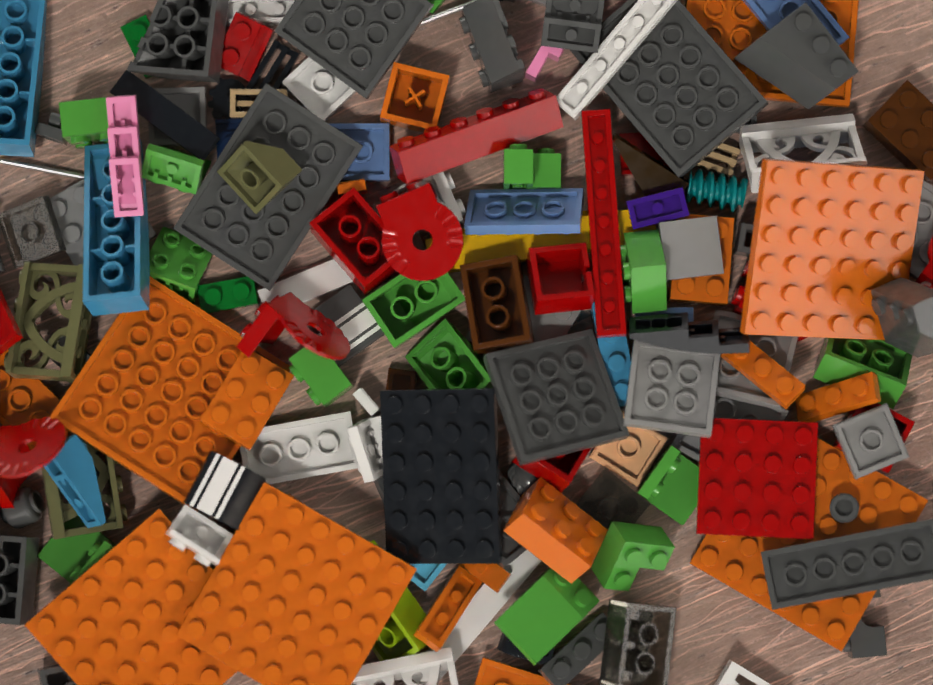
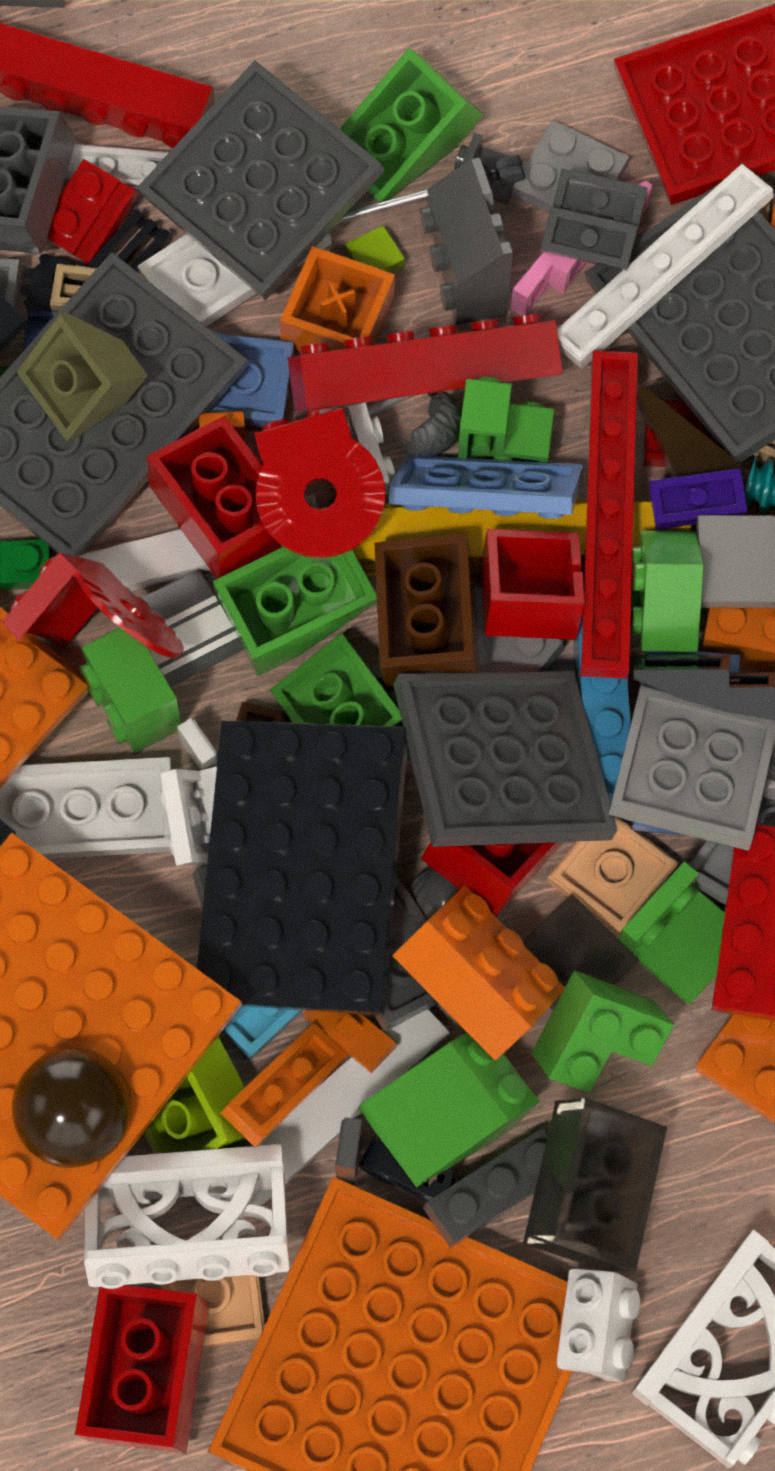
camera: 10 degrees right, 15 degrees down
(326, 646) = (71, 1107): none -> dark brown piece
(433, 51) = (376, 250): none -> lime tile
(486, 174) = (438, 431): none -> dark grey hair
(490, 644) = (348, 1150): none -> dark grey tile

